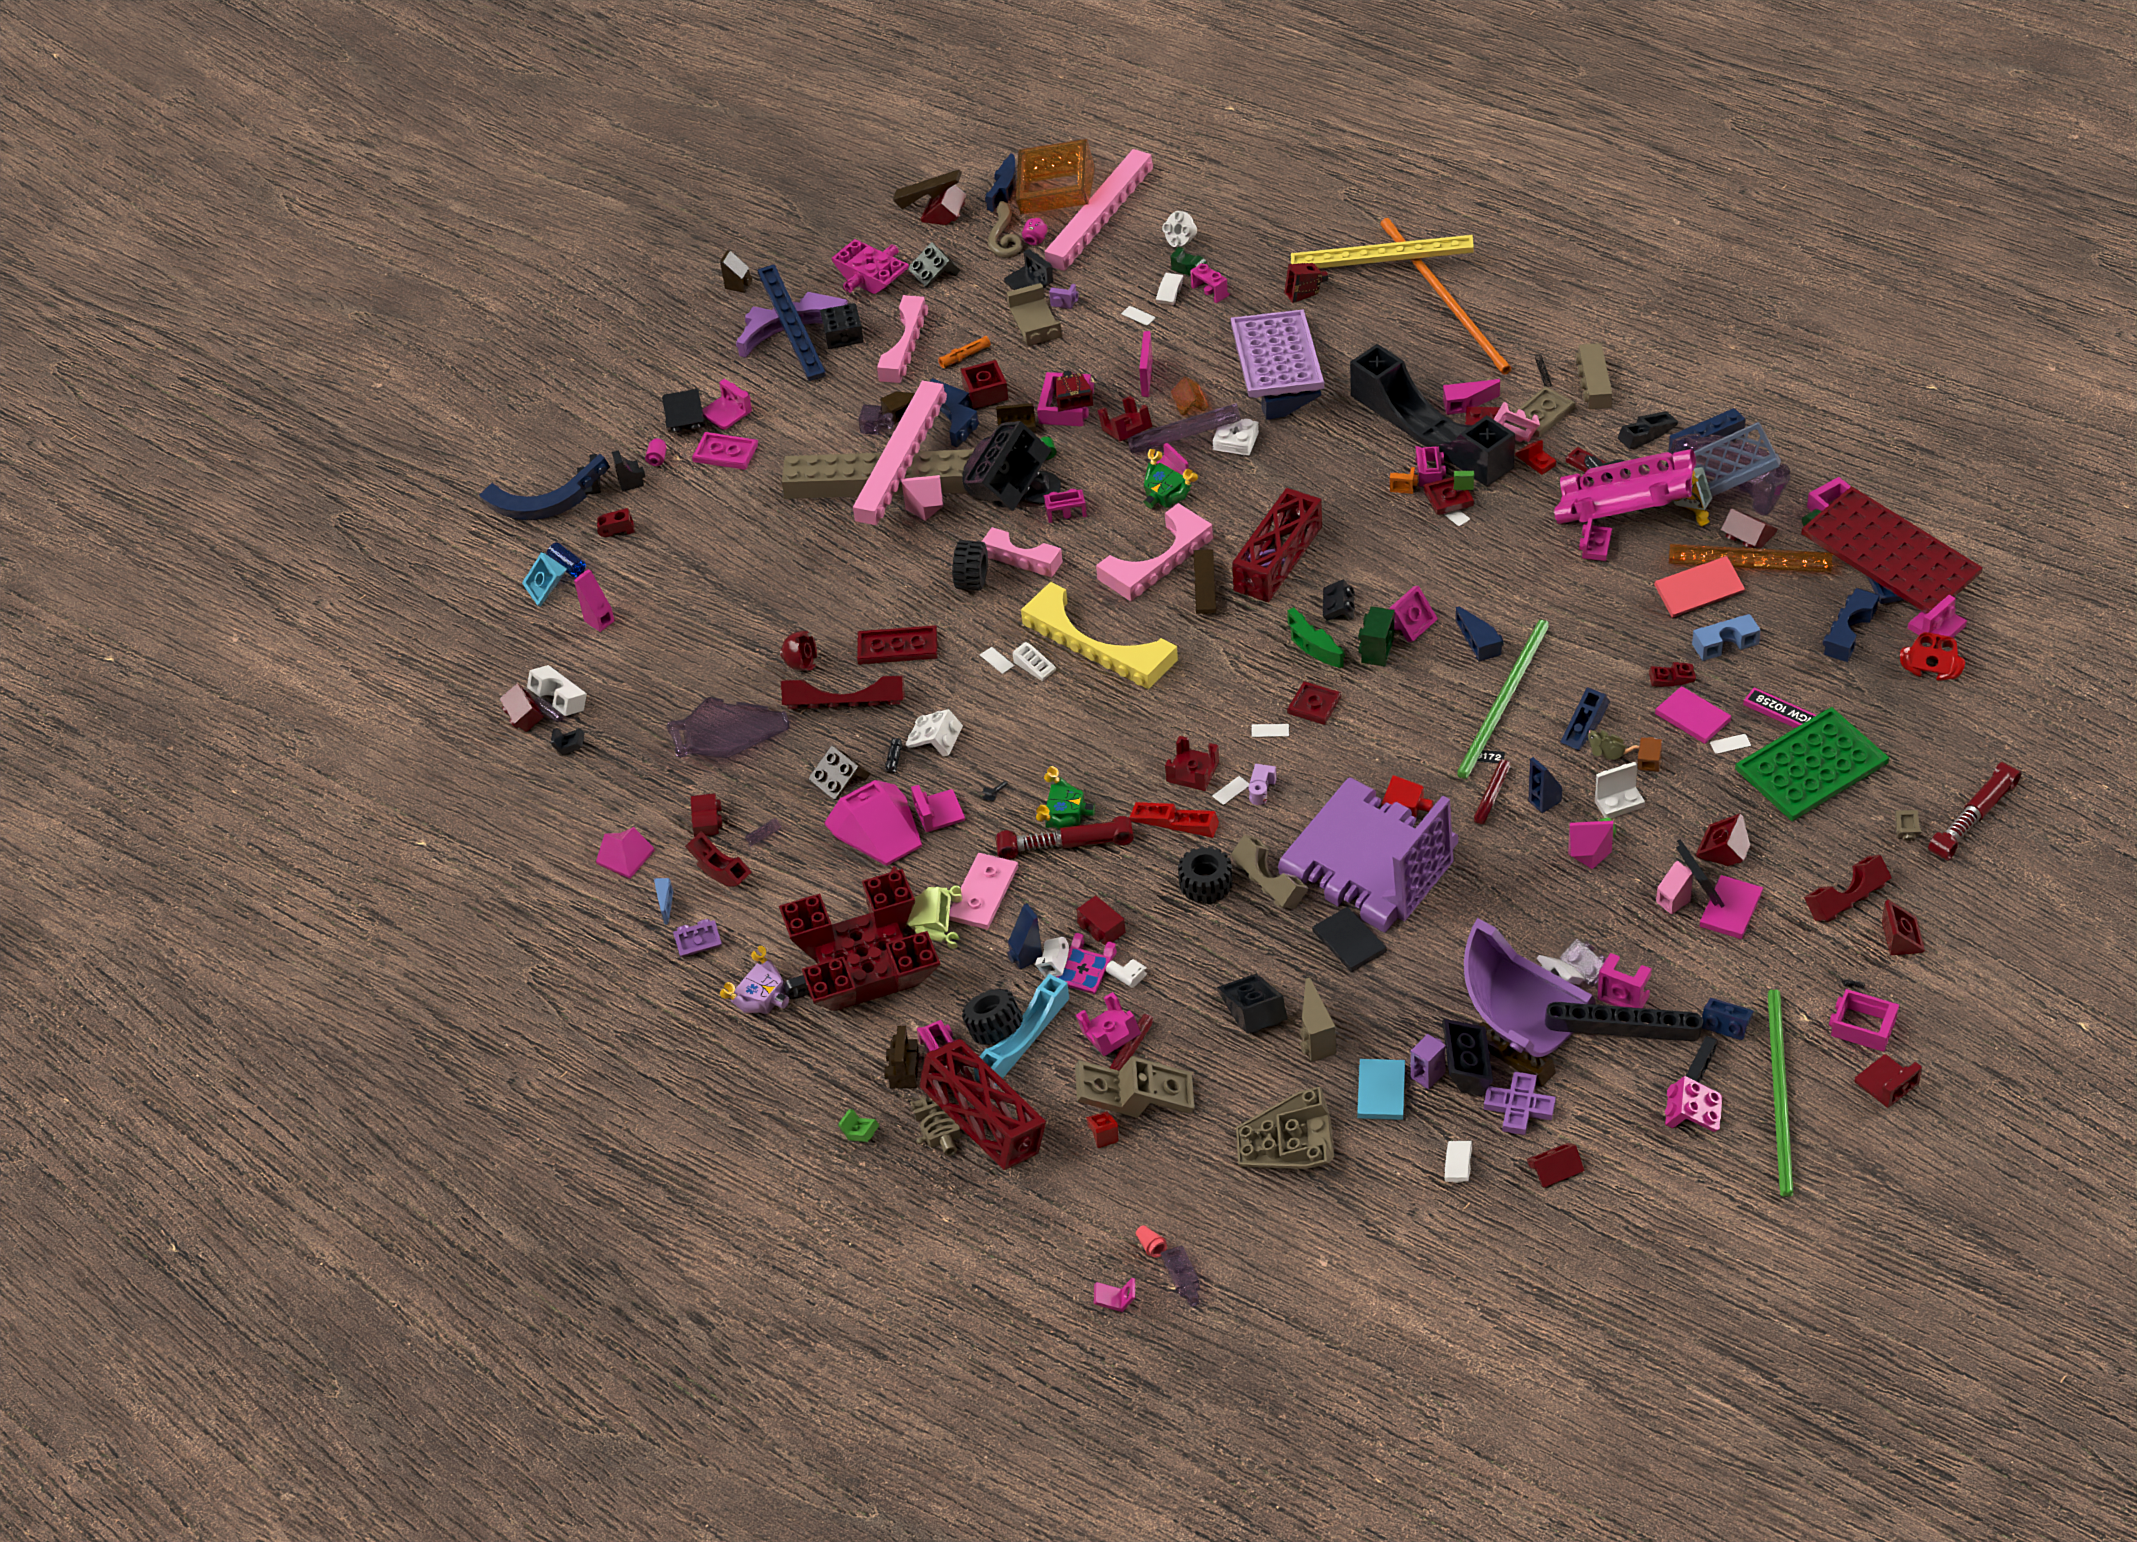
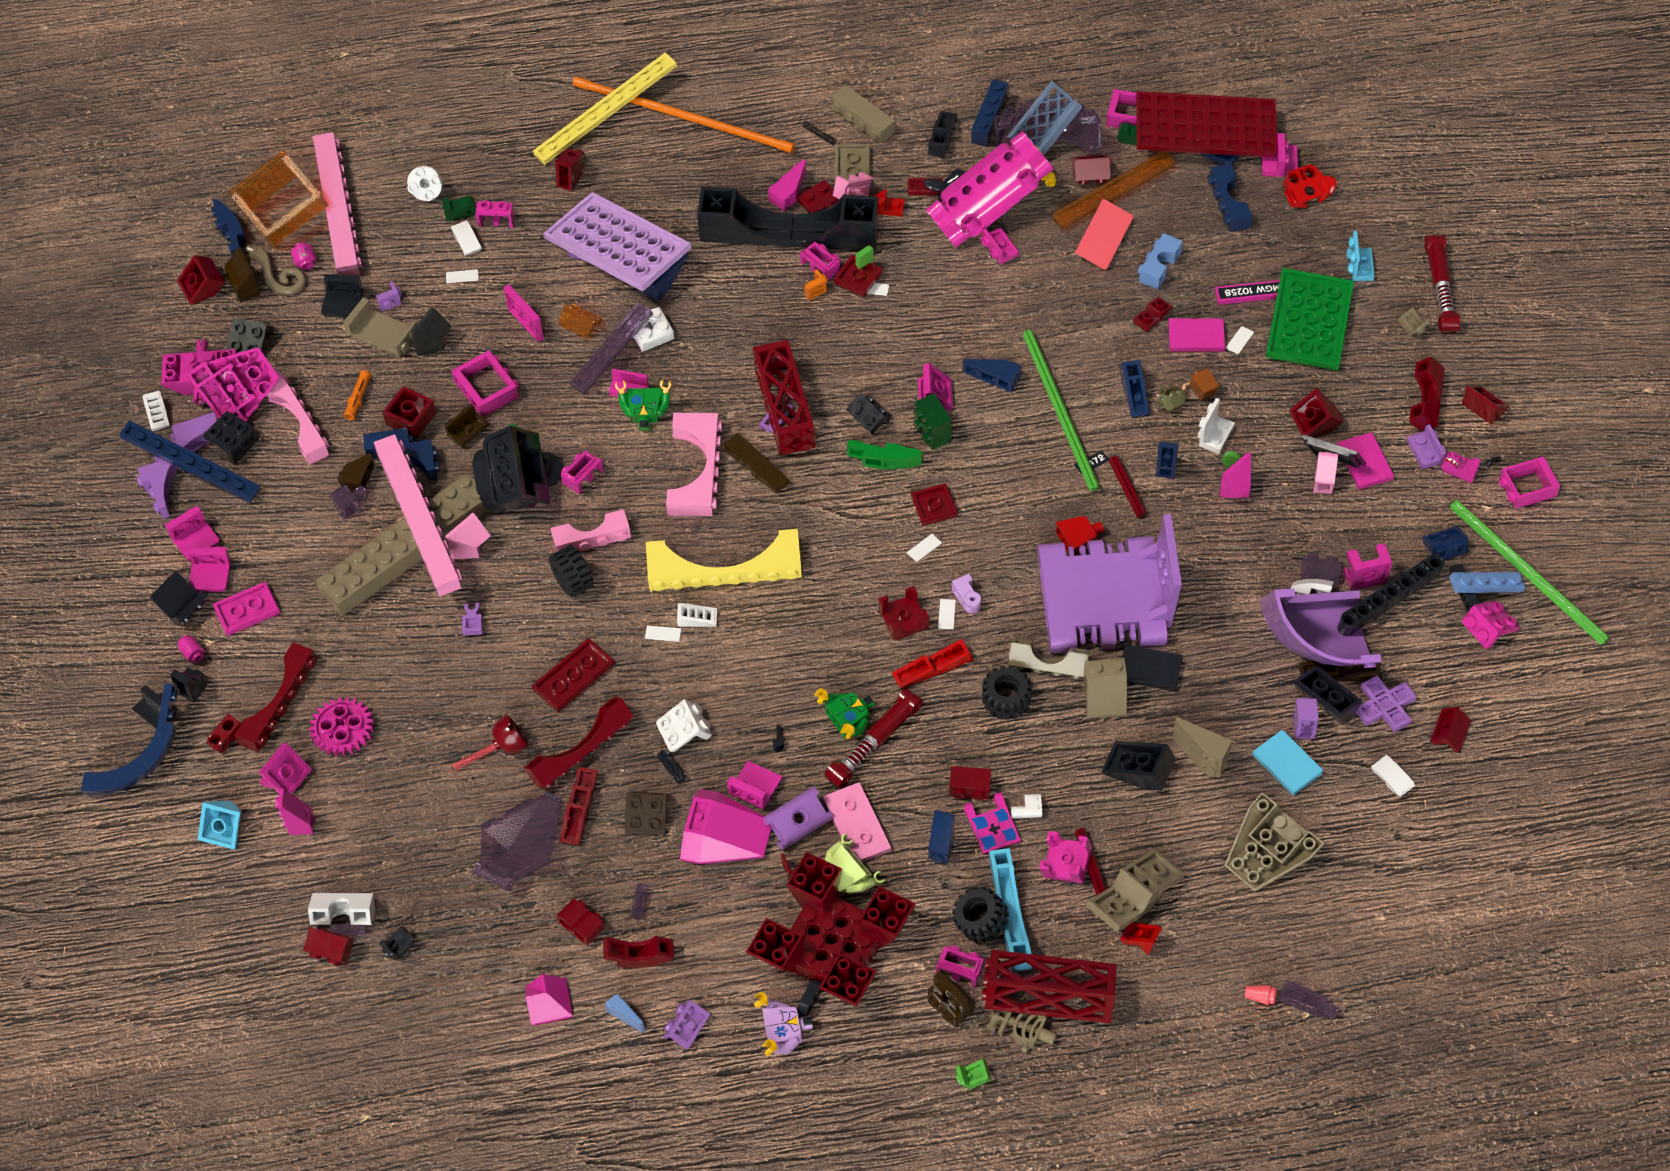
camera: 45 degrees left, 10 degrees up
(574, 565) = (213, 792): clear blue pin -> none
(622, 572) = (284, 770): none -> dark pink bracket
(640, 533) = (255, 730): none -> dark red arch
(696, 570) = (341, 726): none -> dark pink gear
(735, 273) = (87, 449): dark brown slope -> none
(745, 371) = (191, 531): none -> dark pink bracket
(749, 651) = (481, 751): none -> coral piece
(792, 739) = (578, 806): none -> dark red slope
(814, 277) = (153, 400): none -> white slope
(868, 559) = (472, 621): none -> medium lavender plate
(878, 284) = (235, 382): none -> dark pink wedge
(934, 186) = (182, 267): dark brown slope -> none
(951, 862) = (783, 821): none -> medium lavender piece
(973, 220) = (242, 276): none -> dark brown slope
(1054, 956) = (968, 836): white leg -> none
(1060, 336) = (429, 333): none -> pearl dark grey slope
(1073, 391) = (496, 373): dark red torso -> none
(1114, 1297) = (1281, 1054): dark pink bracket -> none
(1127, 424) = (557, 373): dark red panel -> none
(1285, 922) = (1105, 688): none -> dark tan slope
(1724, 1069) = (1486, 582): none -> medium blue plate
(1800, 933) = (1427, 448): none -> medium lavender bracket
(1814, 967) = (1460, 466): none -> dark pink leg
(1889, 1080) = (1584, 514): dark red bracket -> none
(1912, 745) = (1361, 260): none -> medium azure bracket

